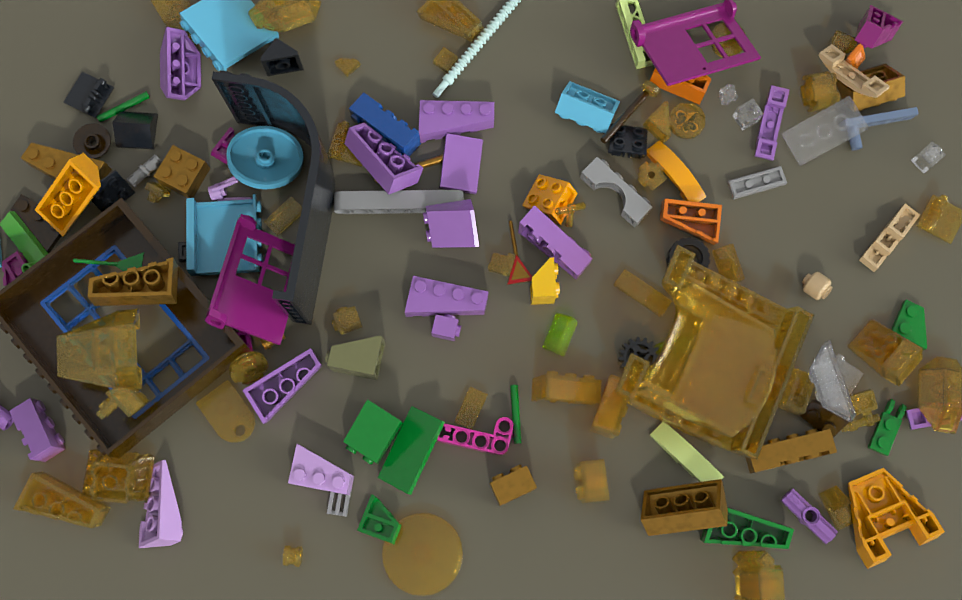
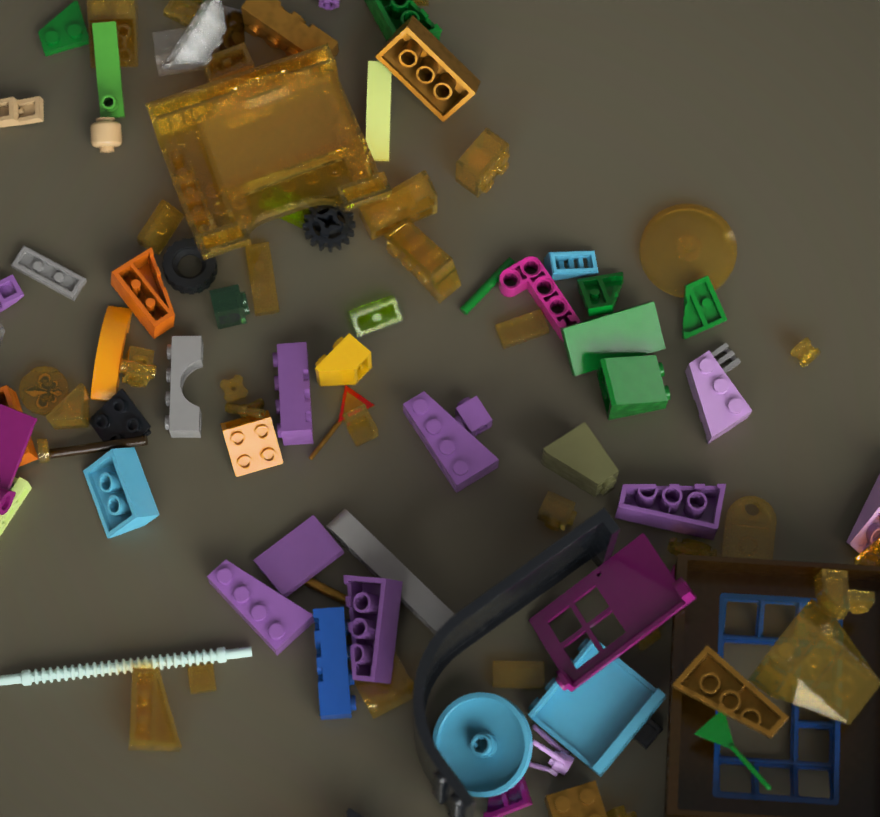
camera: 135 degrees left, 5 degrees down
(347, 65) = (303, 772): clear yellow tile -> none
(445, 471) = (600, 292): none -> green wing
(451, 224) = (371, 496): medium lavender slope -> none
(486, 457) = (572, 272): none -> medium azure slope
(512, 485) = (554, 223): pearl gold brick -> none
(590, 222) = (231, 395): none -> clear yellow plate
(640, 252) = (229, 306): none -> clear green brick
(859, 321) = (108, 69): none -> bright green piece

